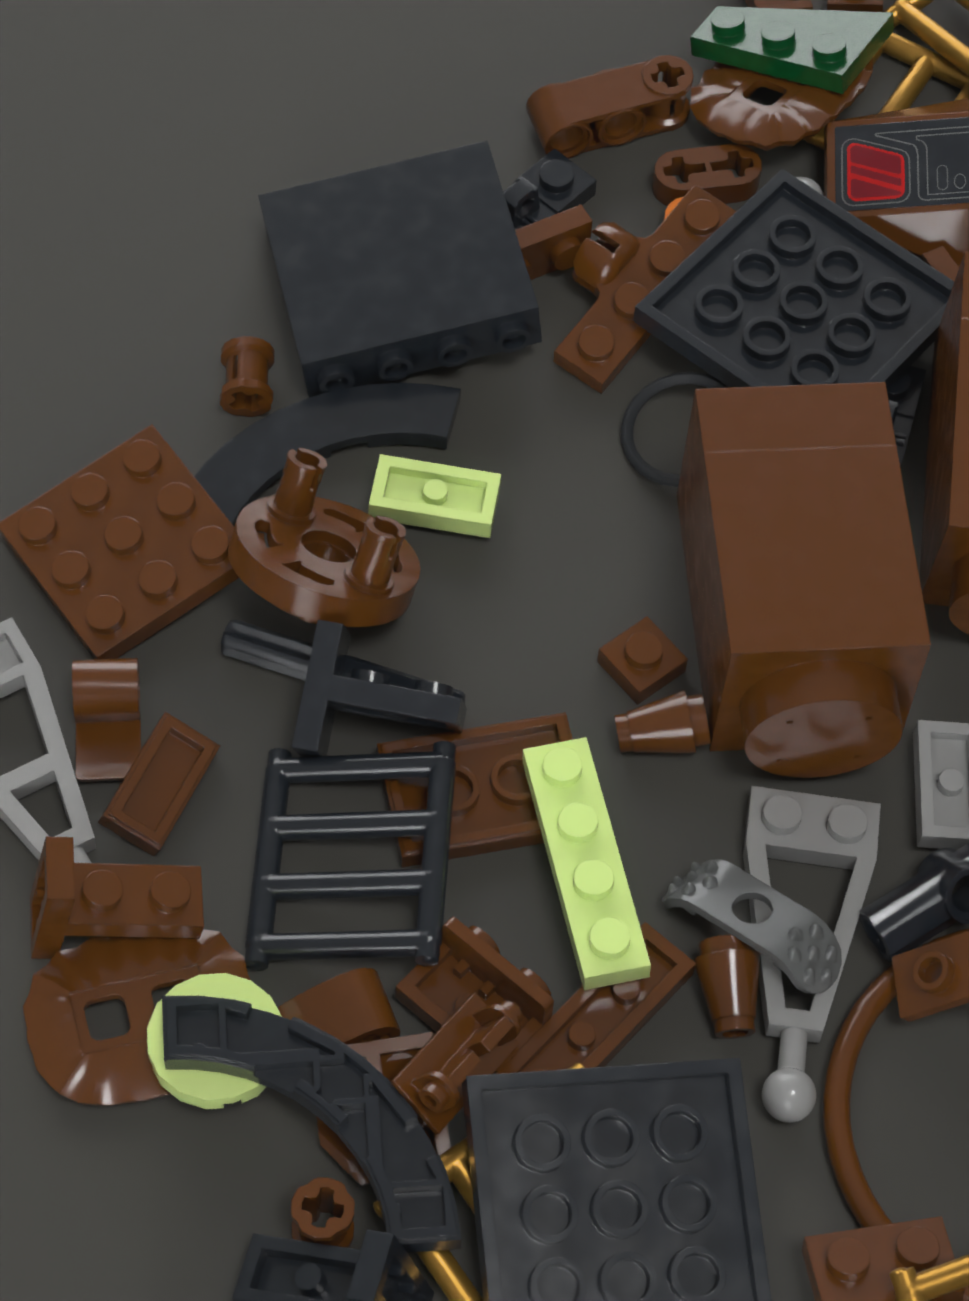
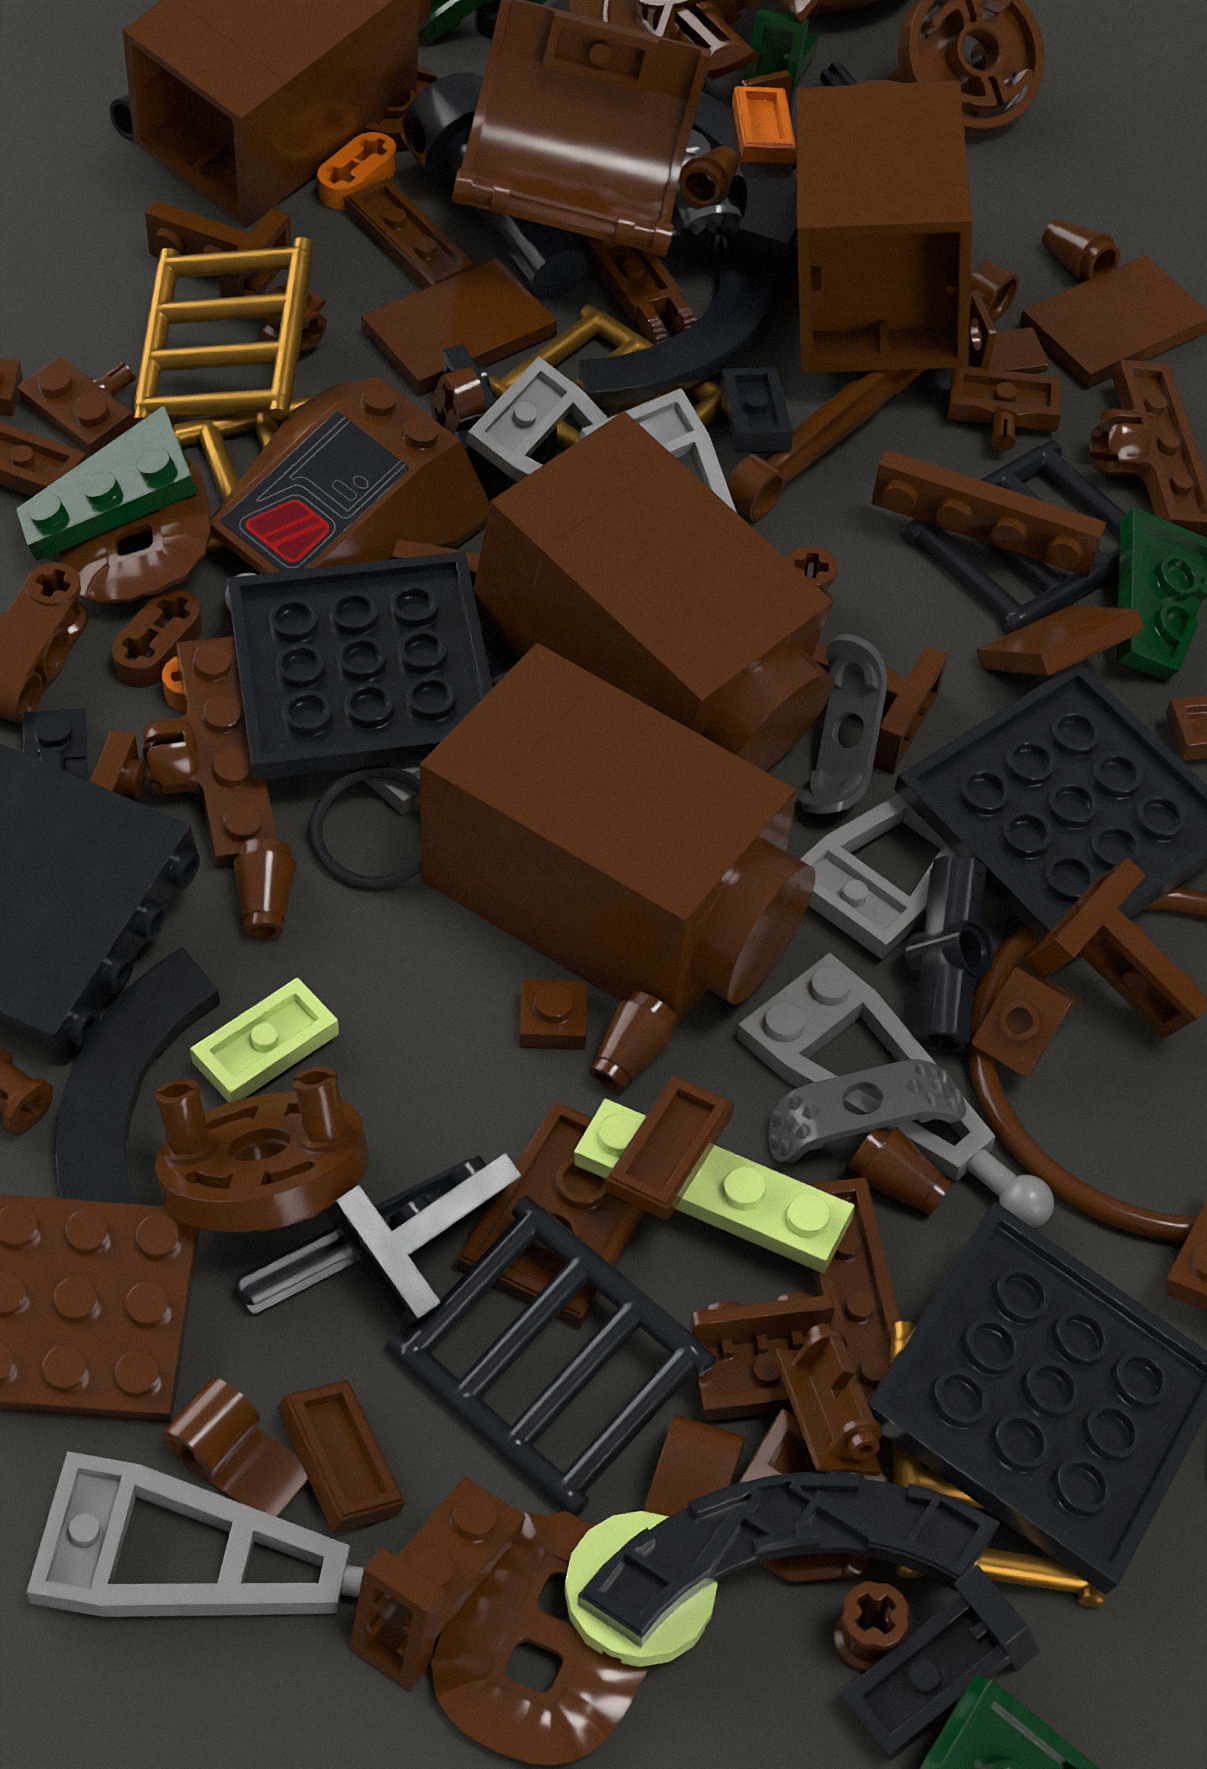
camera: 50 degrees left, 5 degrees down
(560, 399) = (264, 886): none -> reddish brown cone
(574, 803) = (669, 1147): none -> reddish brown tile

